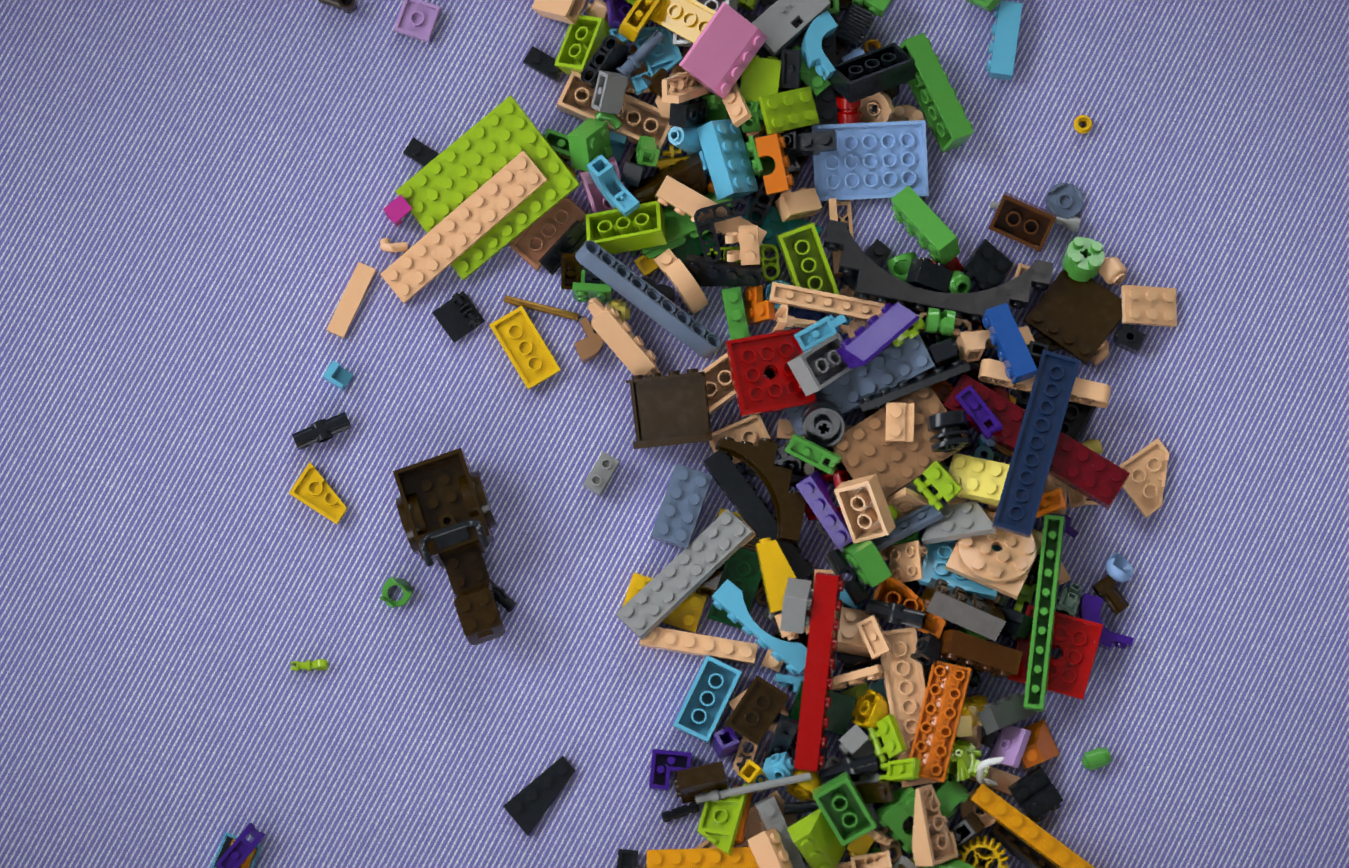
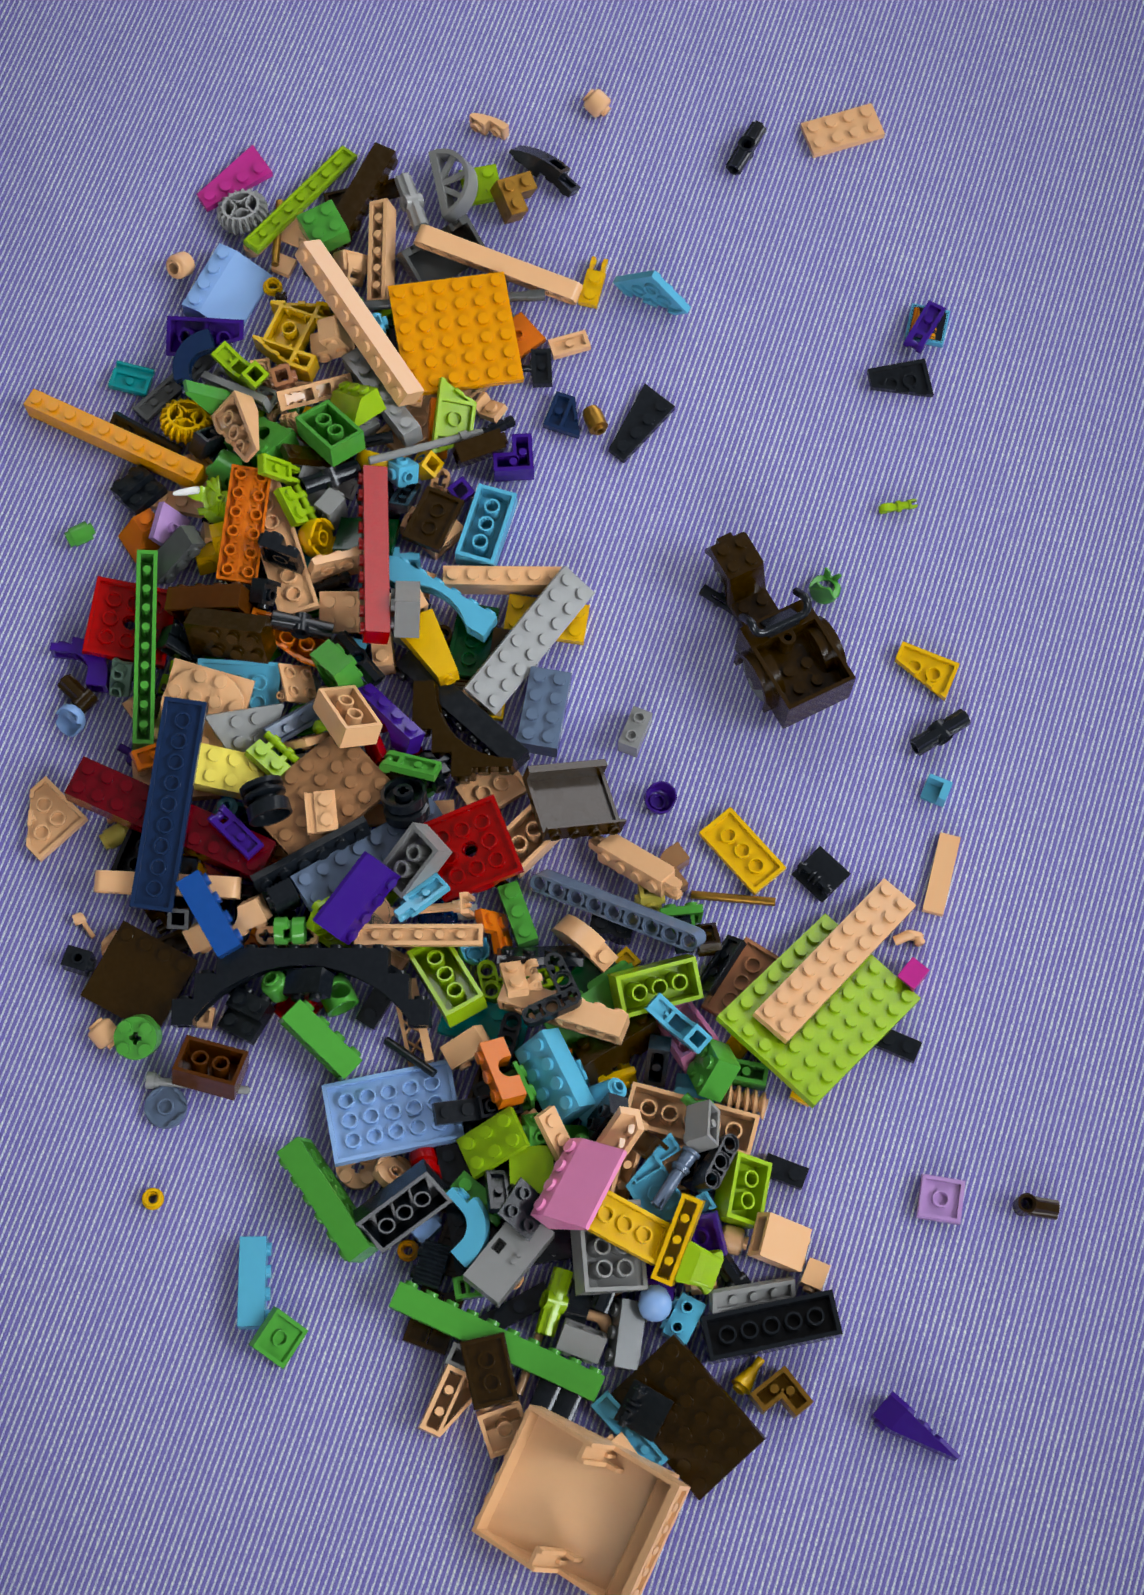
camera: 170 degrees right, 10 degrees down
(273, 801) = (902, 378): none -> black wing
(560, 122) = (746, 1100): none -> light nougat piece
(583, 802) = (595, 420): none -> pearl gold brick
(590, 406) = (660, 797): none -> dark purple hair
(613, 813) = (563, 416): none -> dark blue wing
(647, 151) = (647, 1070): bright green brick -> none
(684, 830) = (489, 409): none -> light nougat bracket
(775, 45) = (518, 1207): none -> black hinge
(848, 207) = (410, 1057): none -> black bar
(873, 637) = (321, 596): light nougat plate -> none
(912, 686) = (276, 552): none -> black plate
(1125, 380) = (78, 919): none -> light nougat hand
(1149, 306) = (59, 999): light nougat plate -> none

